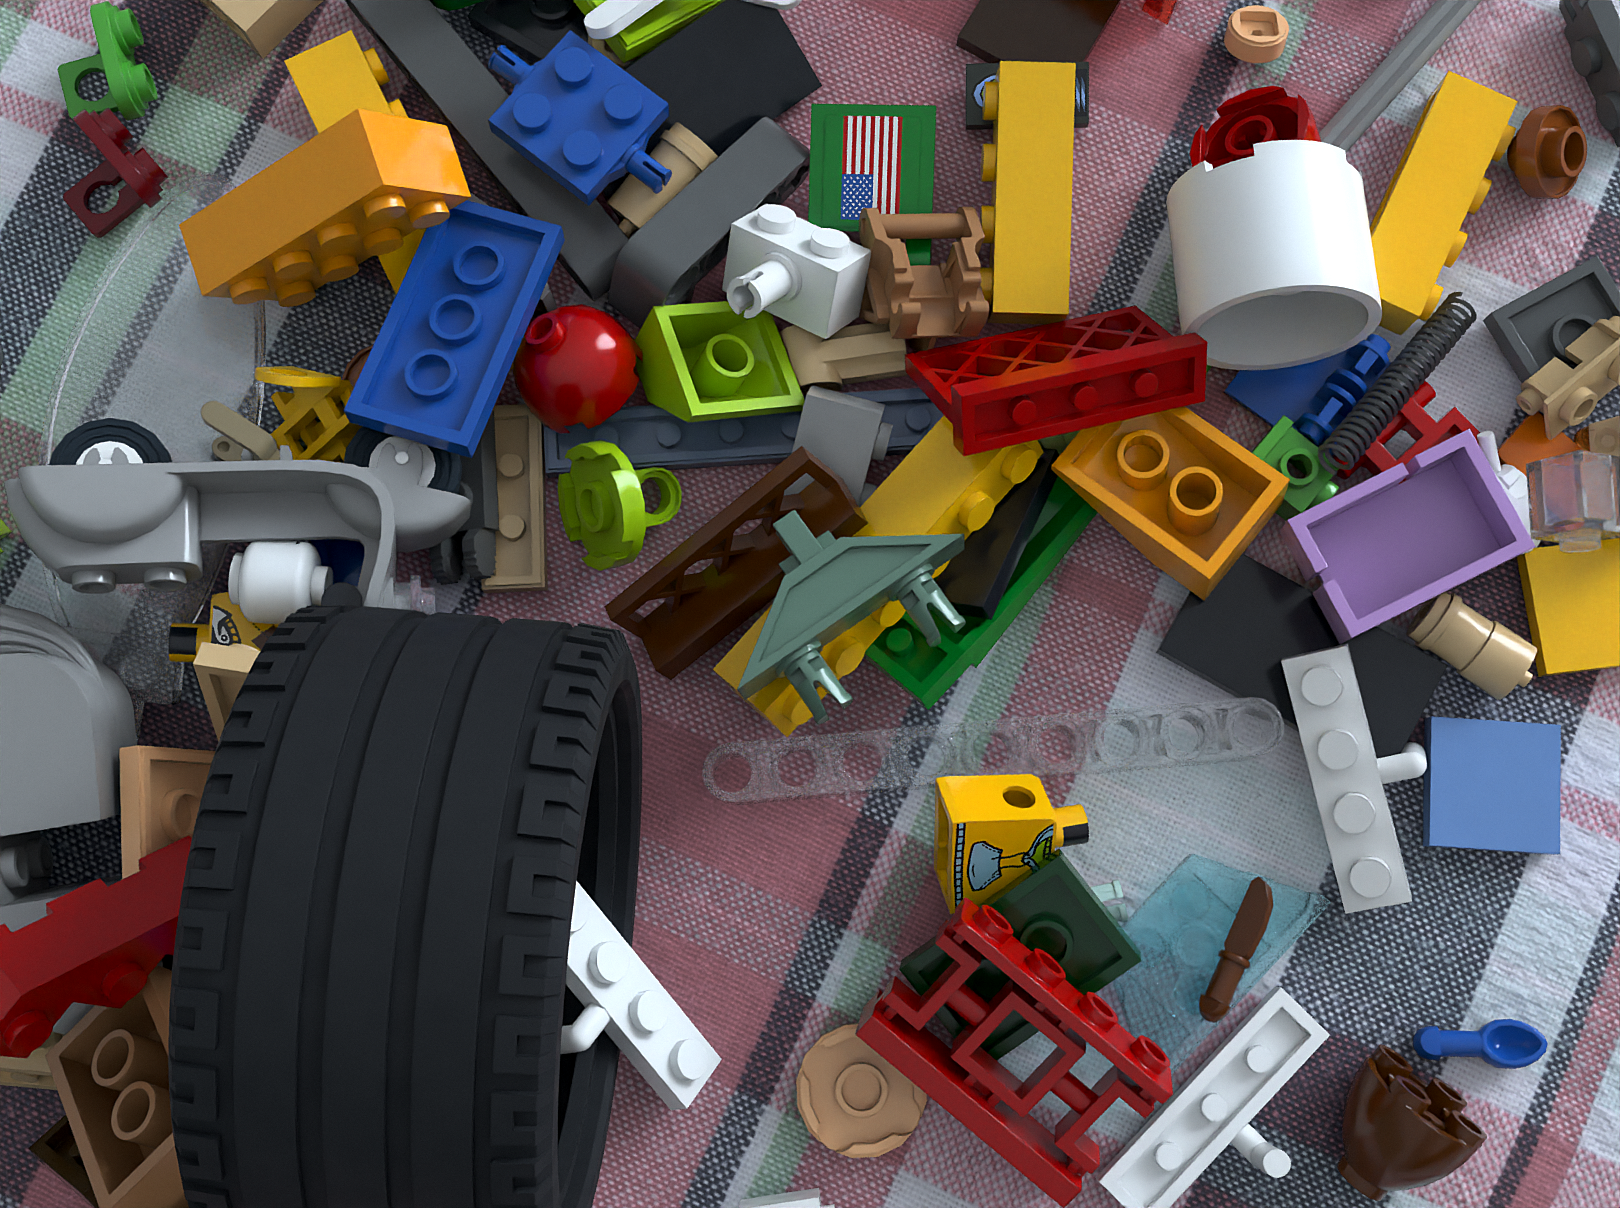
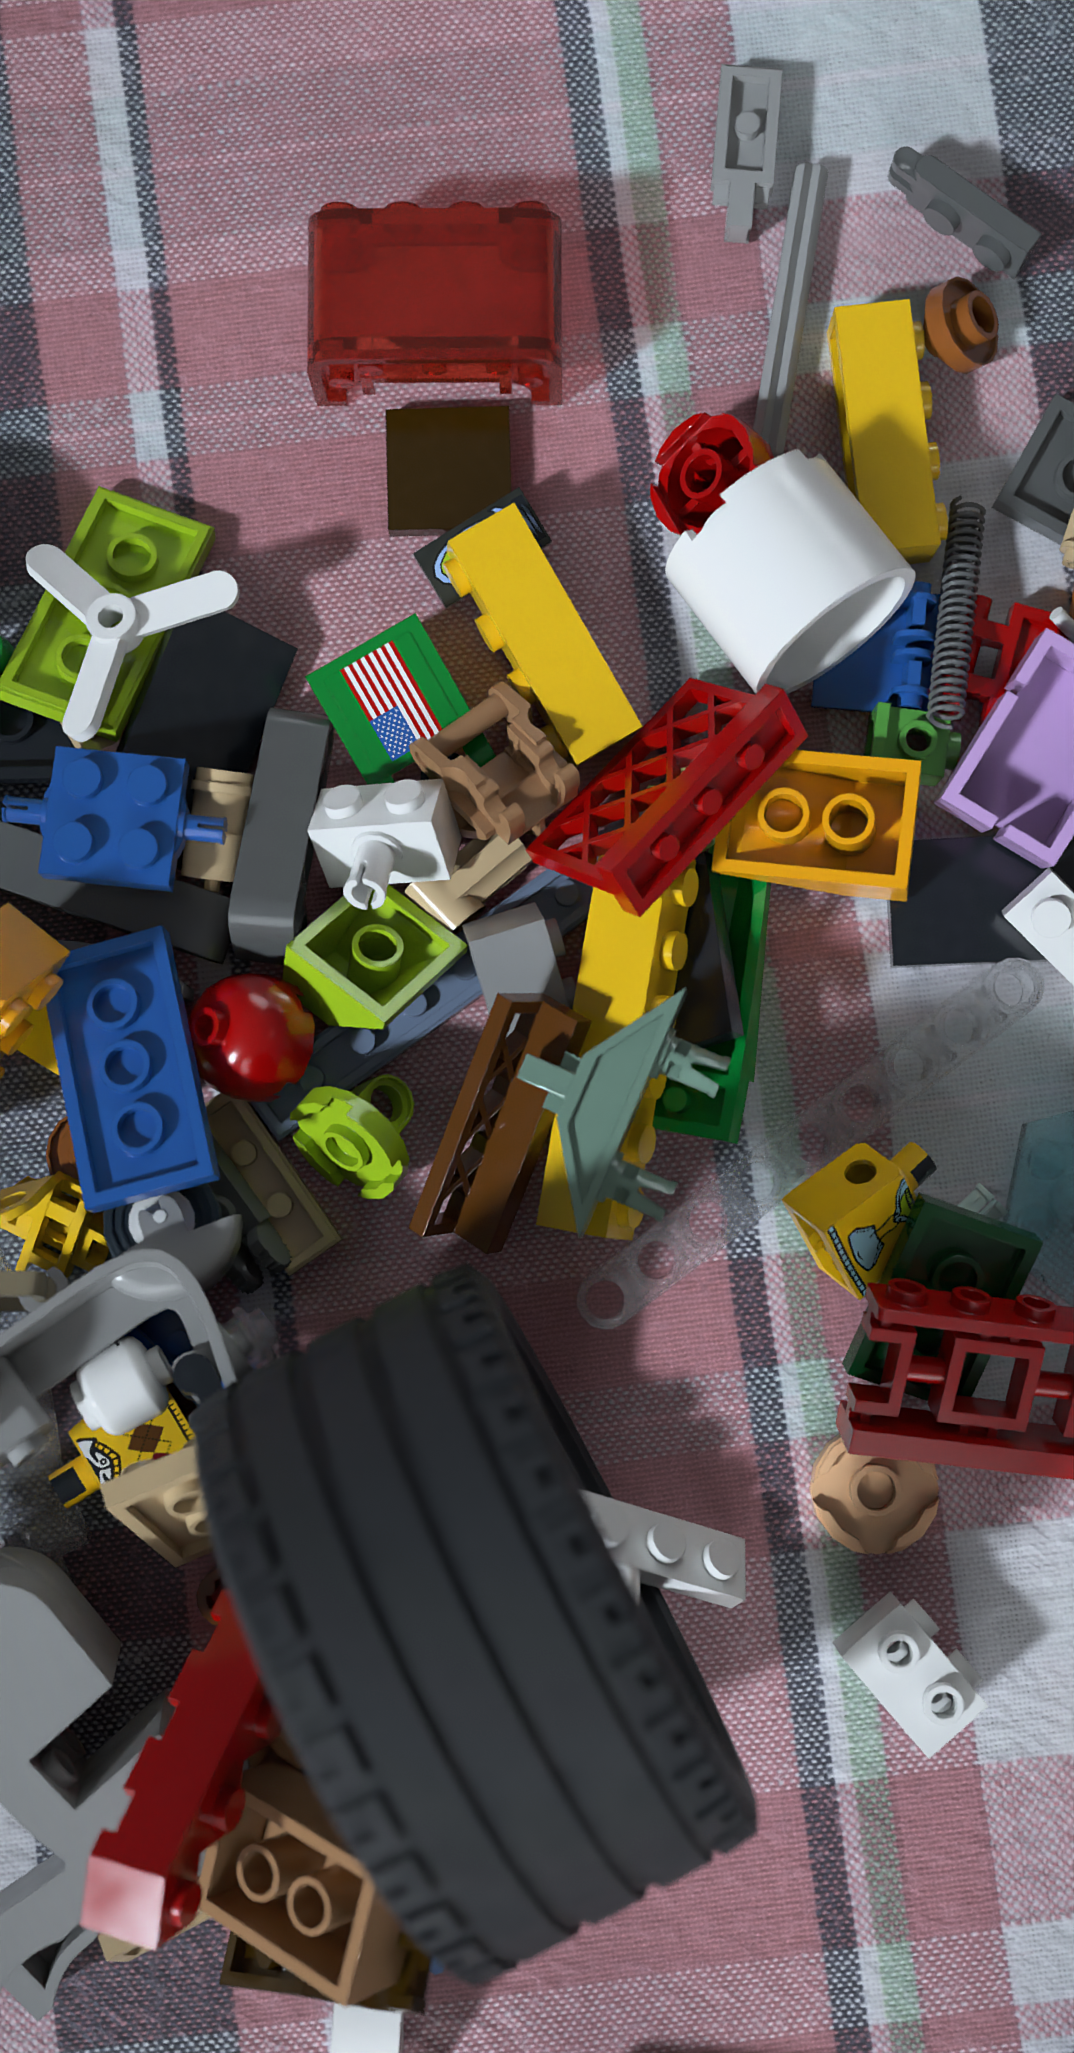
camera: 30 degrees left, 5 degrees up
(158, 798) = (150, 1629): light nougat tile -> none
(1256, 34) = (646, 369): light nougat tile -> none

